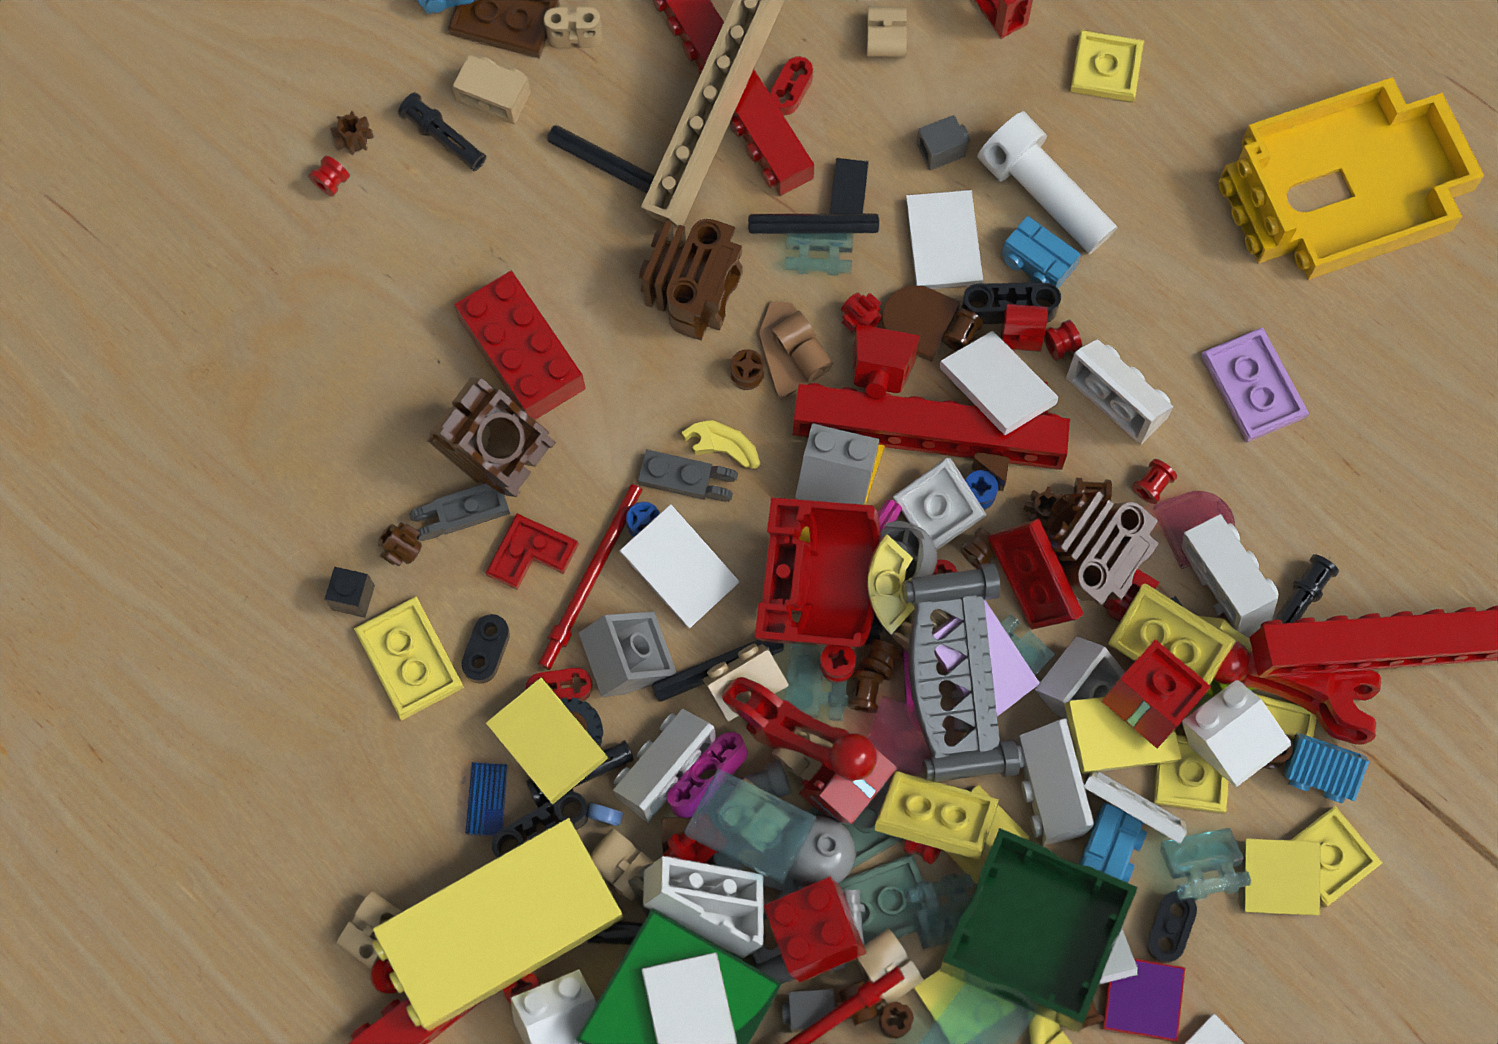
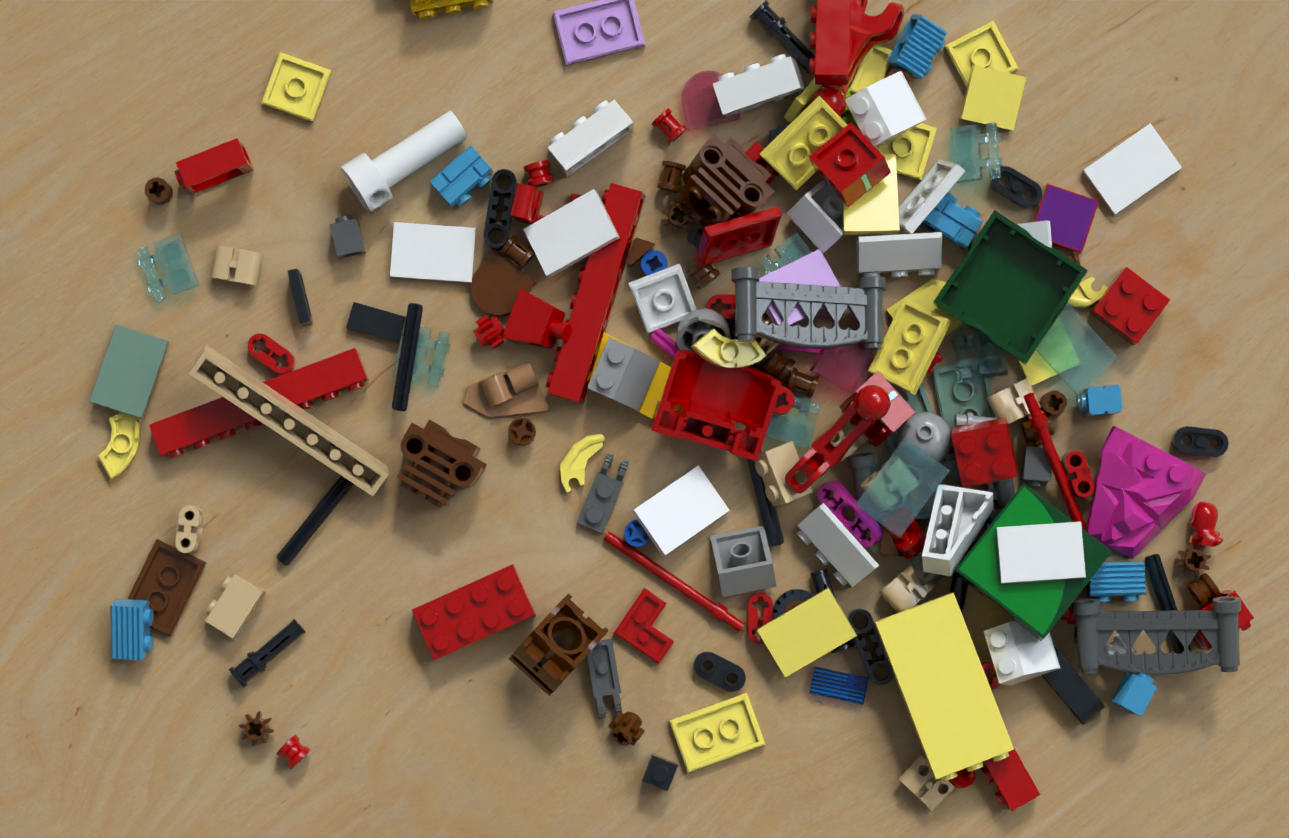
camera: 80 degrees left, 15 degrees up
(604, 814) = (866, 596): medium blue tile -> none
(863, 102) = (300, 297): none -> black tile

